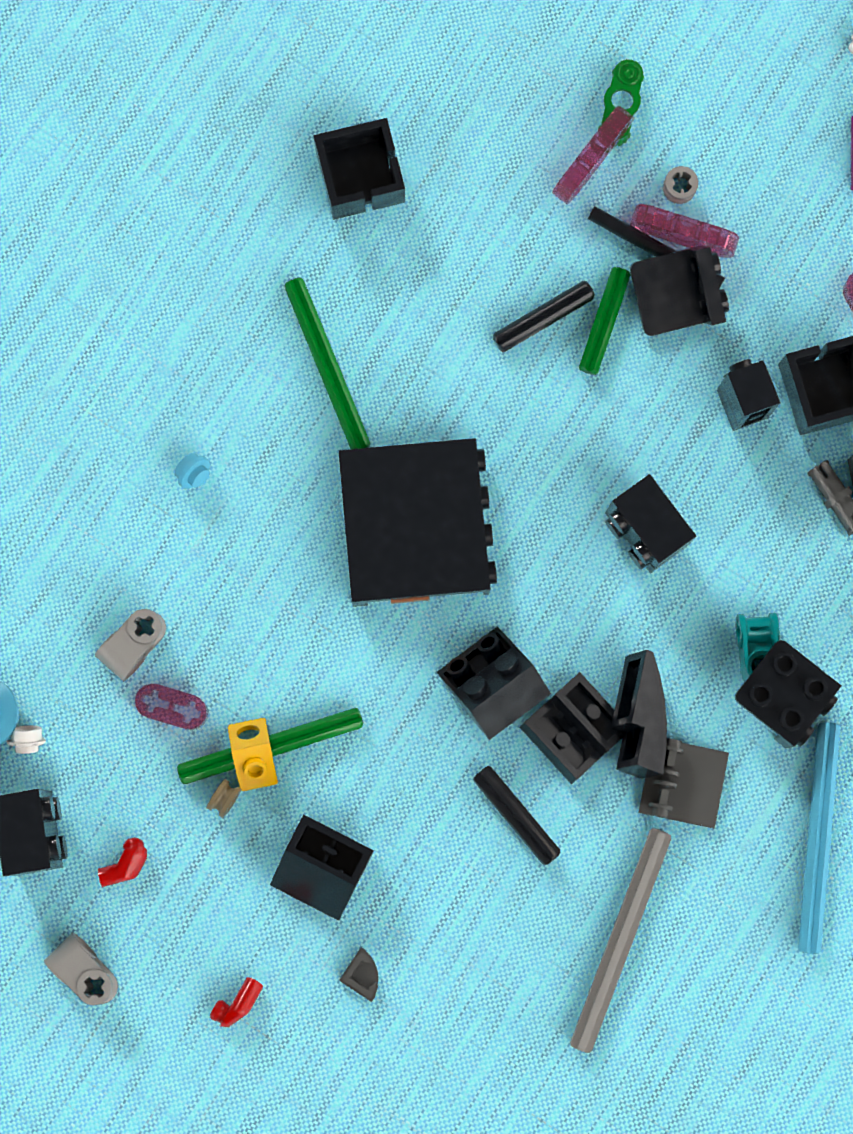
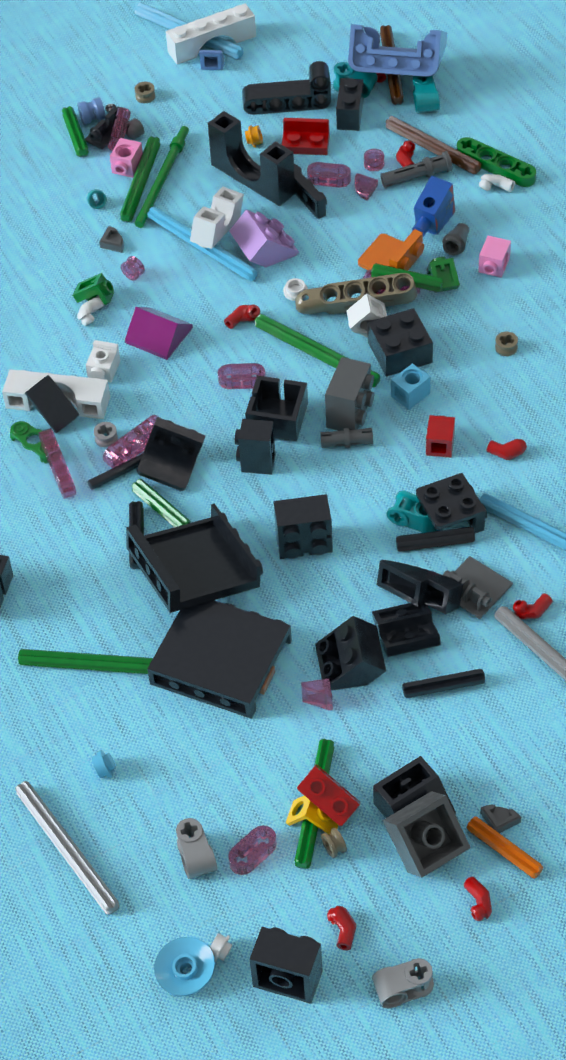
camera: 55 degrees left, 30 degrees down
(68, 491) = (67, 848): none -> light grey axle
(274, 908) = (426, 834): none -> dark grey brick
(276, 764) = (328, 795): none -> red bracket
(321, 1001) = (504, 847): none -> orange axle
(421, 673) = (317, 693): none -> clear pink slope
(527, 417) = (195, 561): none -> black panel
(682, 90) = (52, 404): none -> black slope
(684, 872) = (532, 611): none -> red arm
(695, 43) = (86, 394): none -> white arch
(727, 687) = (435, 539): none -> black axle
(788, 124) = (103, 360): none -> white brick

